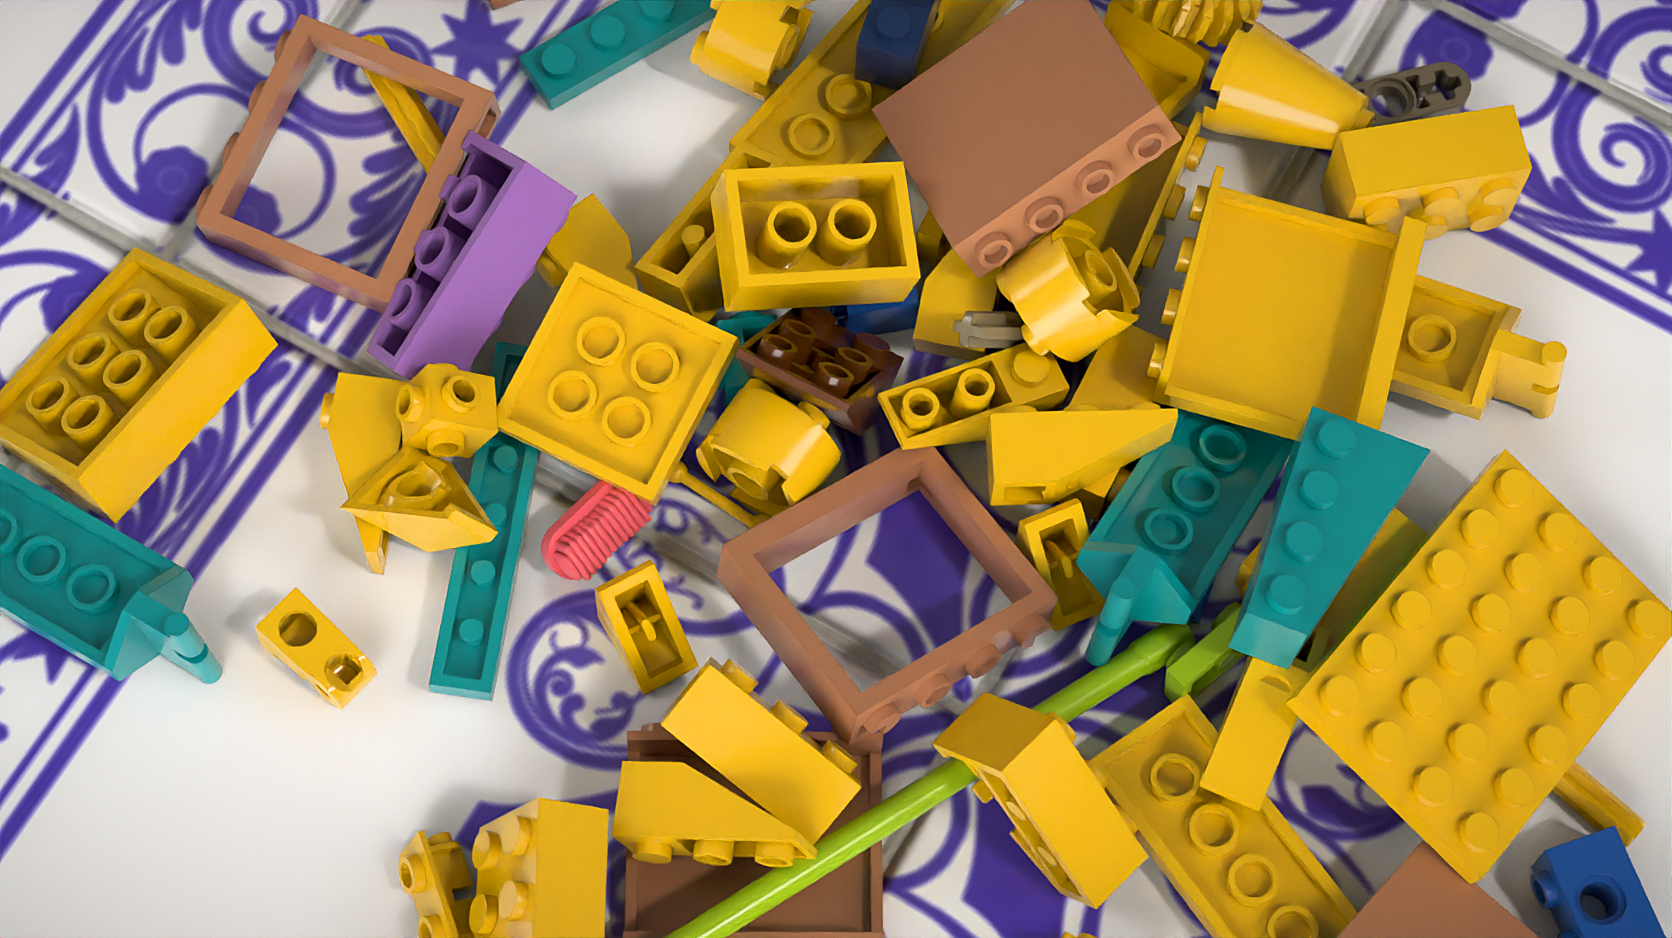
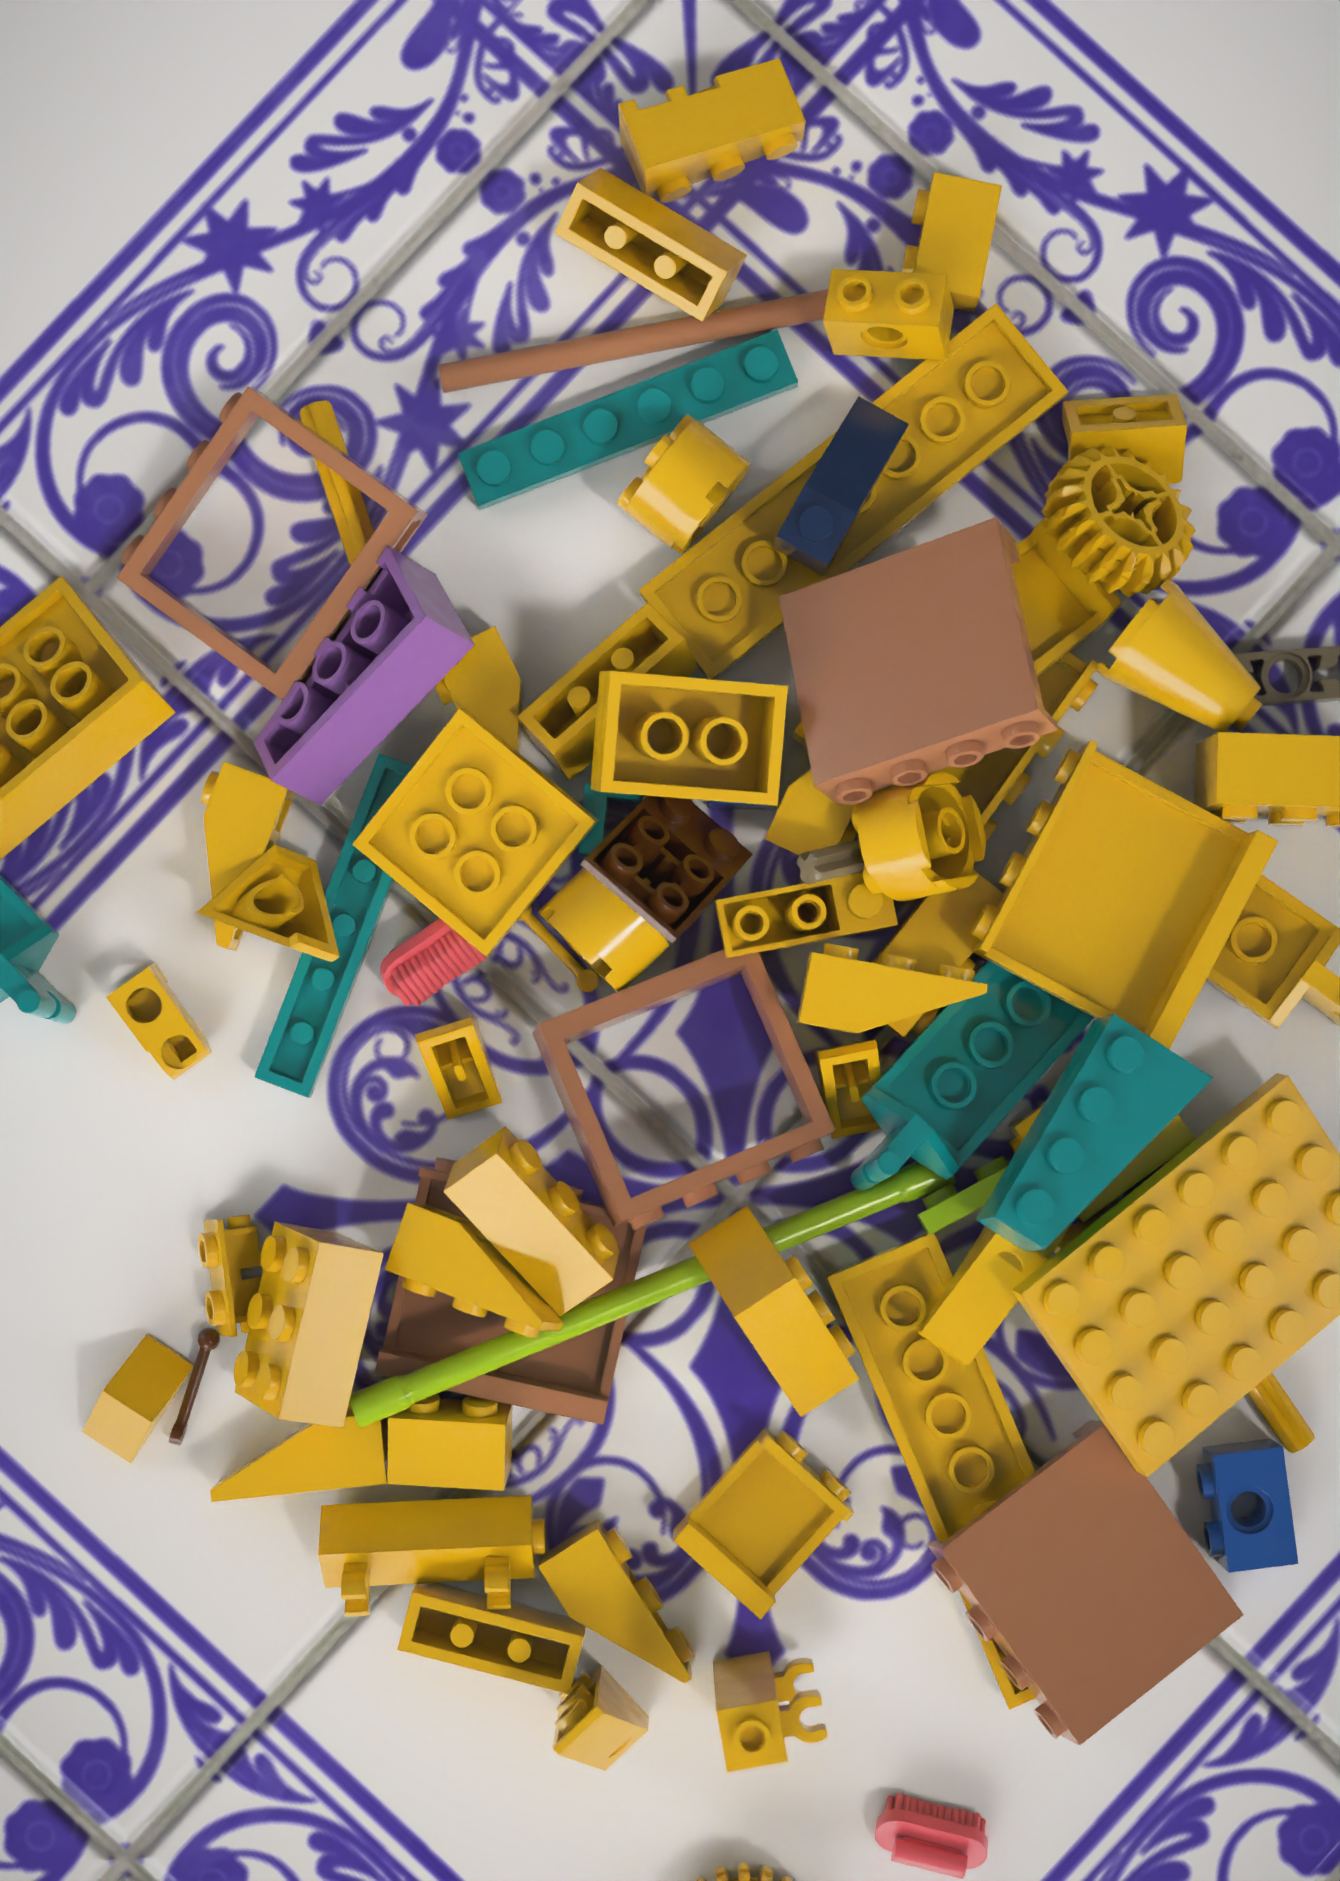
camera: 15 degrees right, 20 degrees up
(447, 411) = (314, 827): yellow brick -> none

